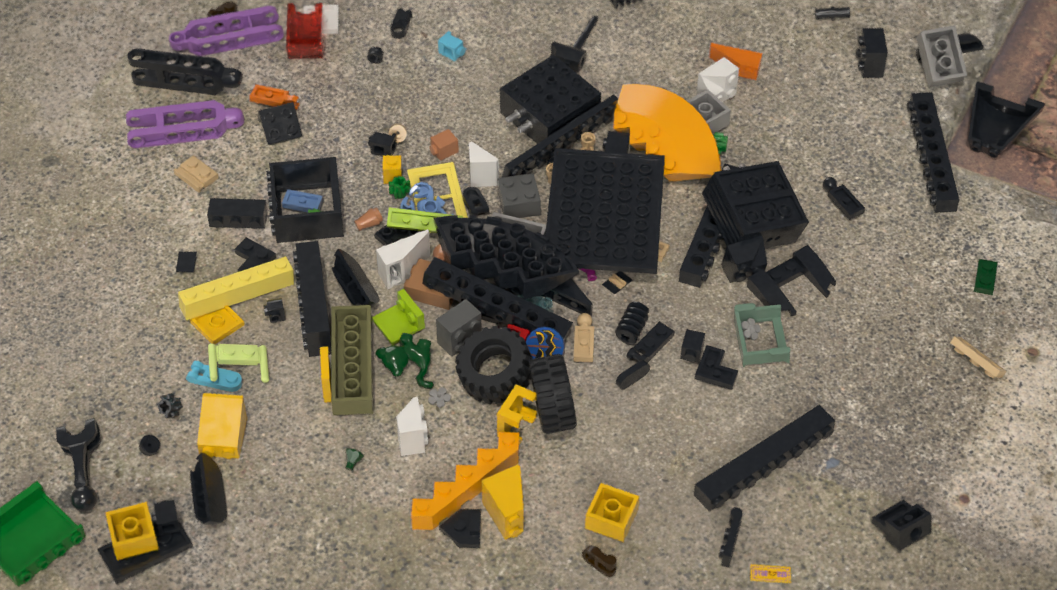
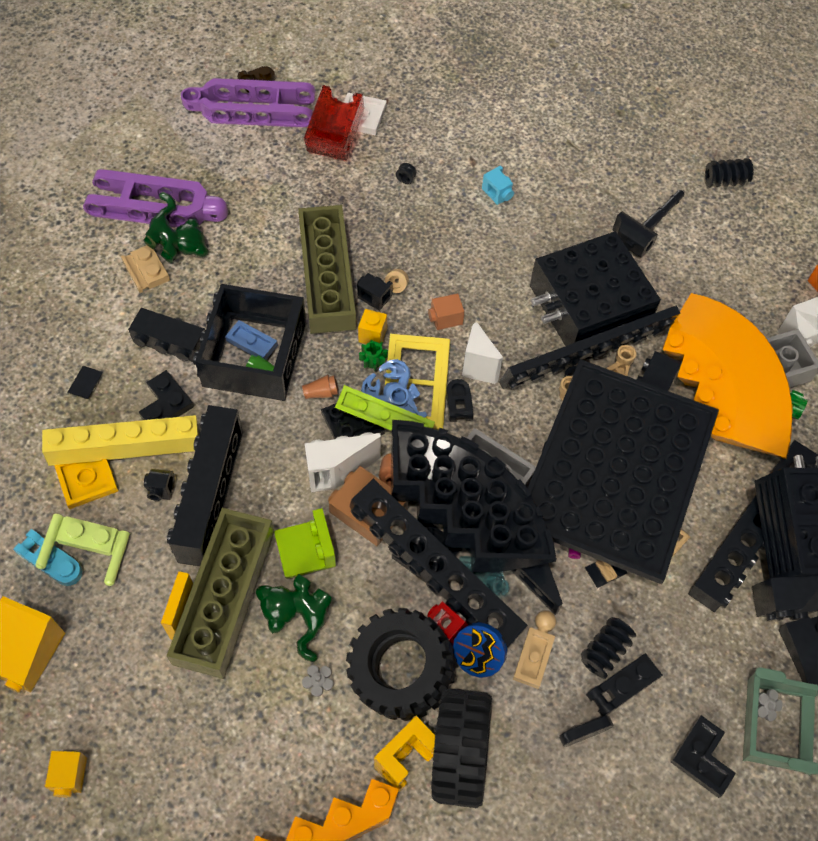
camera: 15 degrees right, 10 degrees up
(160, 73) = (156, 136): black piece -> none
(220, 145) = (185, 238): none -> dark green animal
(272, 96) = (270, 195): orange plate -> none
(280, 123) = (264, 231): black bracket -> none
(288, 490) = (65, 773): none -> yellow brick
(341, 136) = (327, 269): none -> olive brick
(352, 456) = (171, 744): dark green rock -> none
(353, 280) = (272, 472): black brick -> none
(400, 21) = (451, 139): black piece -> none
(412, 429) = (256, 730): white slope -> none
(457, 325) = (375, 587): dark grey brick -> none
(519, 196) = (516, 410): dark grey brick -> none
(692, 346) = (681, 712): black brick -> none

